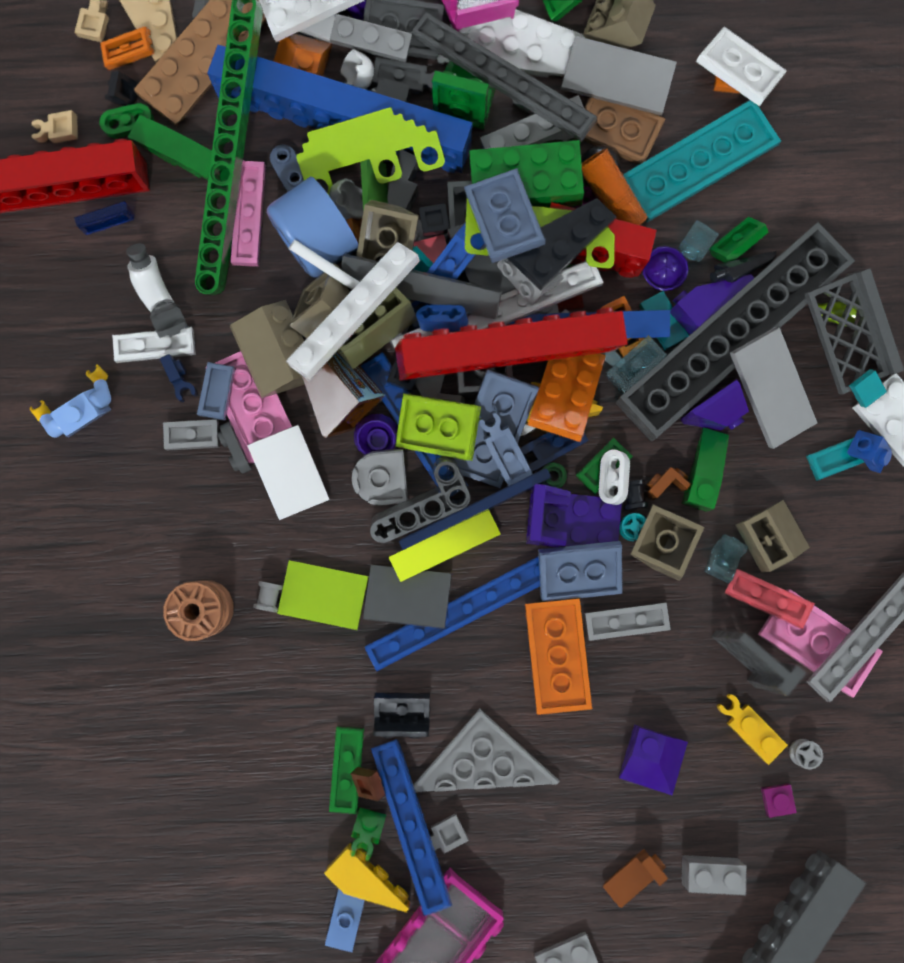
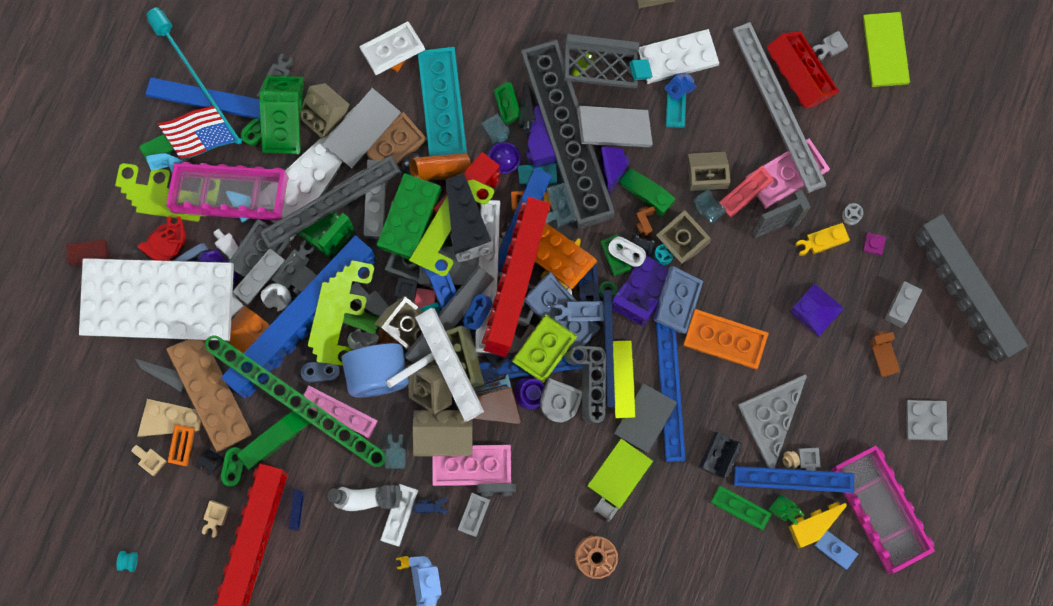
camera: 65 degrees left, 5 degrees down
(216, 391) = (453, 484): sand blue tile -> none
(223, 306) = (396, 455): none -> clear light blue plate
(288, 472) = (529, 460): white tile -> none
(368, 783) = (755, 495): copper plate -> none
(436, 810) = (791, 460): none -> tan plate
(504, 215) = (433, 241): sand blue tile -> none
(627, 621) = (722, 286): light grey plate -> none

